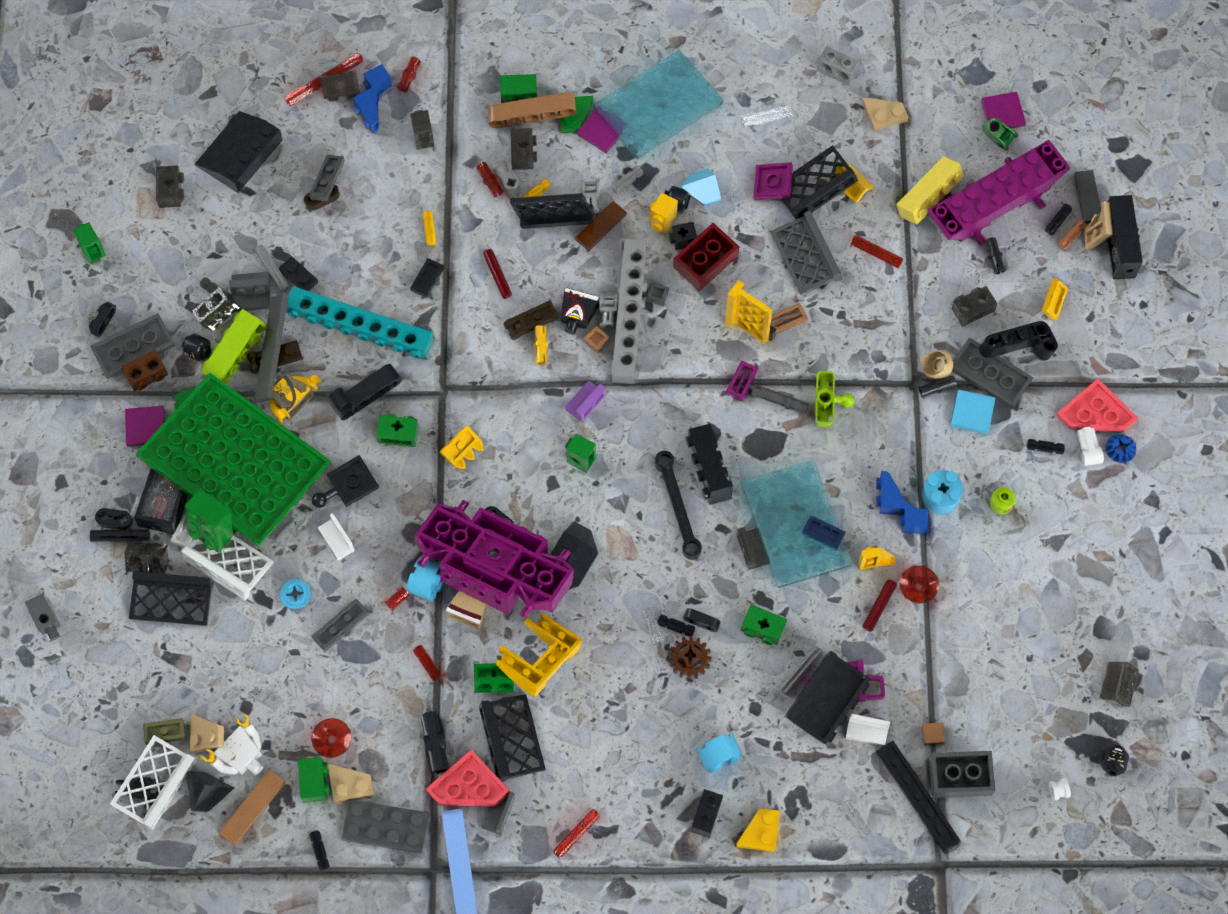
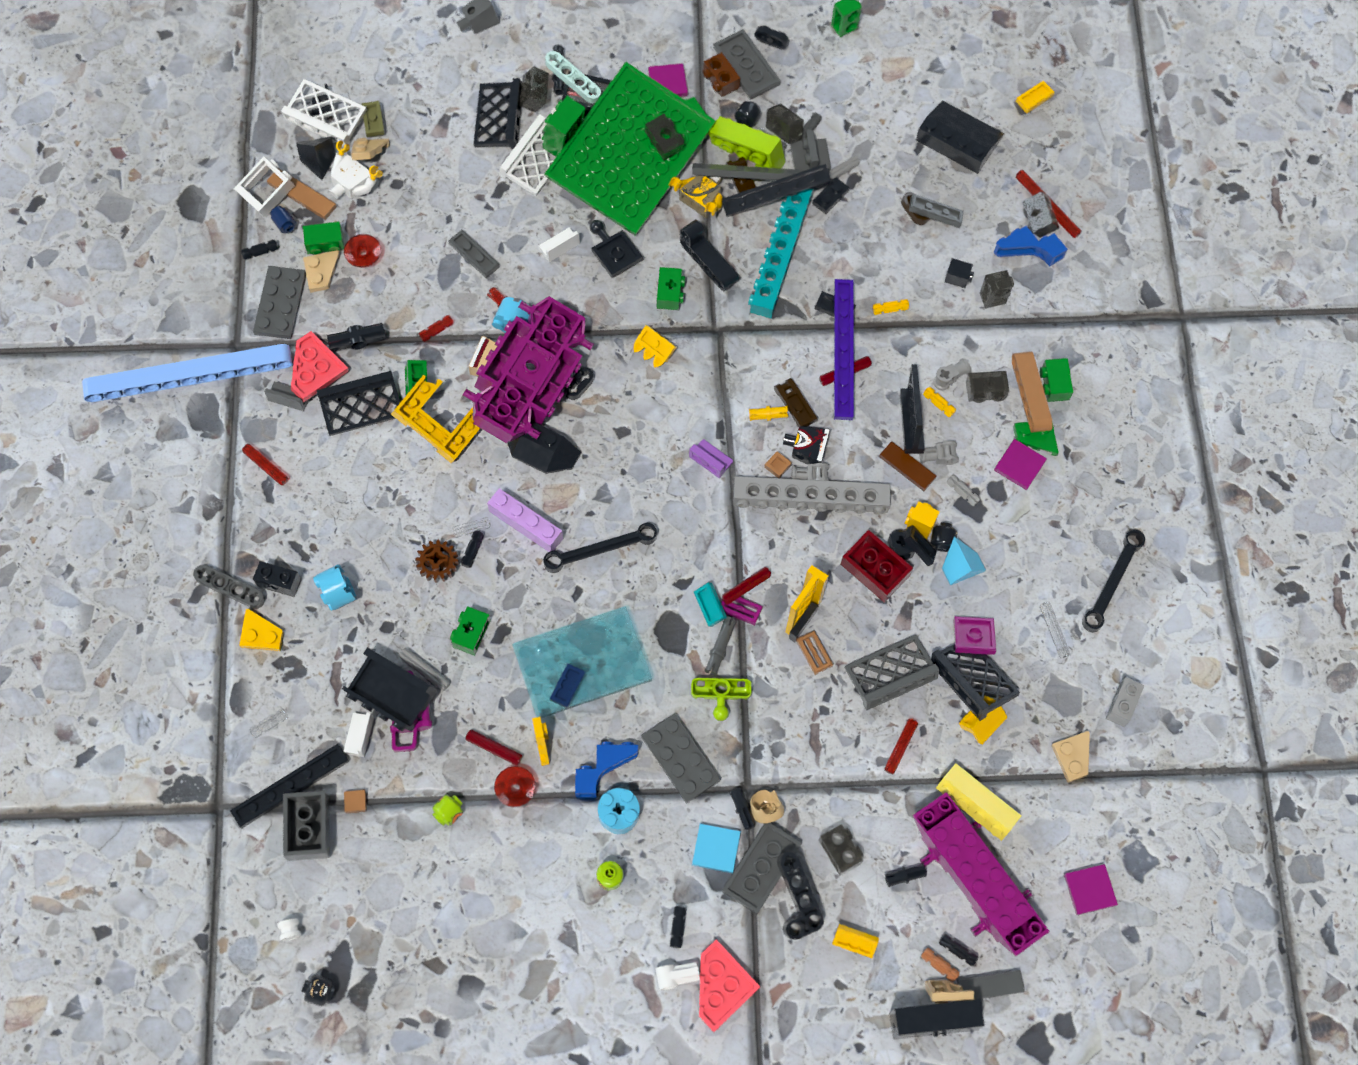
camera: 85 degrees right, 0 degrees up
(113, 523) = (579, 64): black beam -> none
(147, 513) = (572, 77): none -> light aqua beam
(166, 195) = (914, 78): clear smoke brick -> none
(200, 78) = (1035, 96): none -> yellow plate
(223, 429) = (665, 147): none -> clear smoke brick
(236, 819) = (254, 176): none -> white window
(286, 824) = (282, 219): none -> dark blue brick
(287, 590) = (509, 209): medium azure gear -> none
(296, 320) = (776, 190): none -> black tile
(398, 163) = (959, 273): none -> black brick
(409, 74) = (1062, 278): clear red pin -> none
(478, 269) = (843, 349): none -> dark purple plate
(489, 179) = (951, 358): clear red pin -> none
(580, 452) = (648, 449): green brick -> none
(650, 572) = (525, 520): none -> lavender brick
(657, 294) = (834, 523): dark grey tile -> none
(658, 104) = (1056, 518): clear light blue plate -> none
(687, 217) = (920, 545): none -> black tile
(701, 620) = (476, 571): black beam -> none
(709, 463) = (642, 574): black wedge -> none
(710, 864) = (230, 584): none -> dark grey beam
(721, 64) = (1113, 580): none -> black piece
(721, 372) = (746, 585): none -> dark red axle
(739, 406) = (710, 604): none -> teal tile
(751, 548) = (554, 617): clear smoke panel -> none
(888, 439) = (680, 758): none -> dark grey plate
(942, 646) = (447, 810): none -> lime head
(1002, 135) = (1058, 883): green piece -> none
(1117, 454) = (675, 1022): blue gear -> none
(1119, 683) = (404, 1000): clear smoke panel -> none

